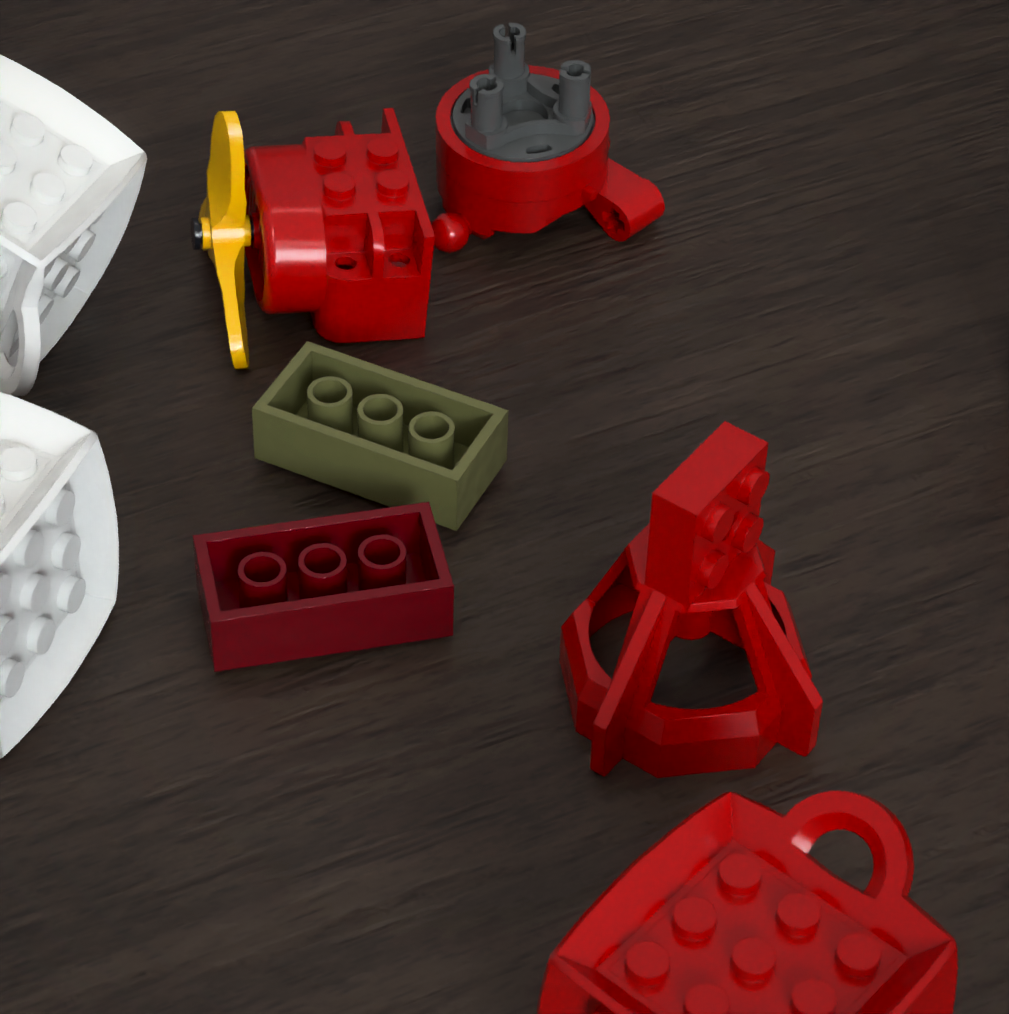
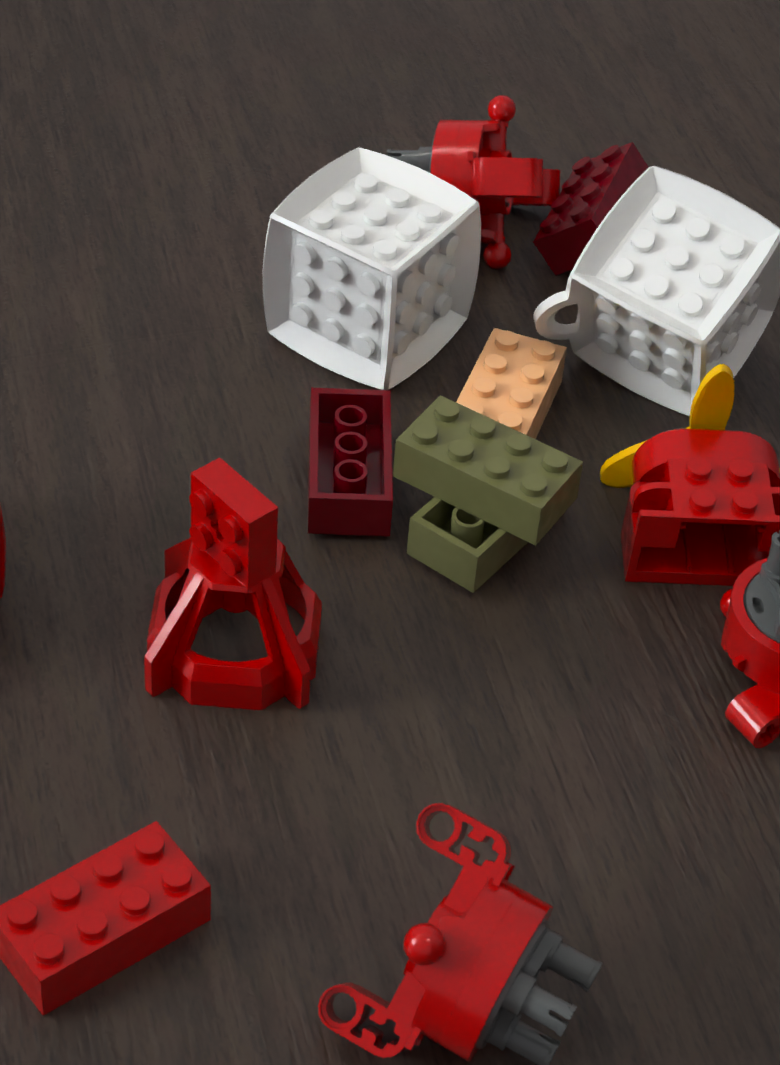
camera: 100 degrees right, 0 degrees up
(164, 449) = (515, 380): none -> light nougat brick
(368, 394) = (487, 469): none -> olive brick

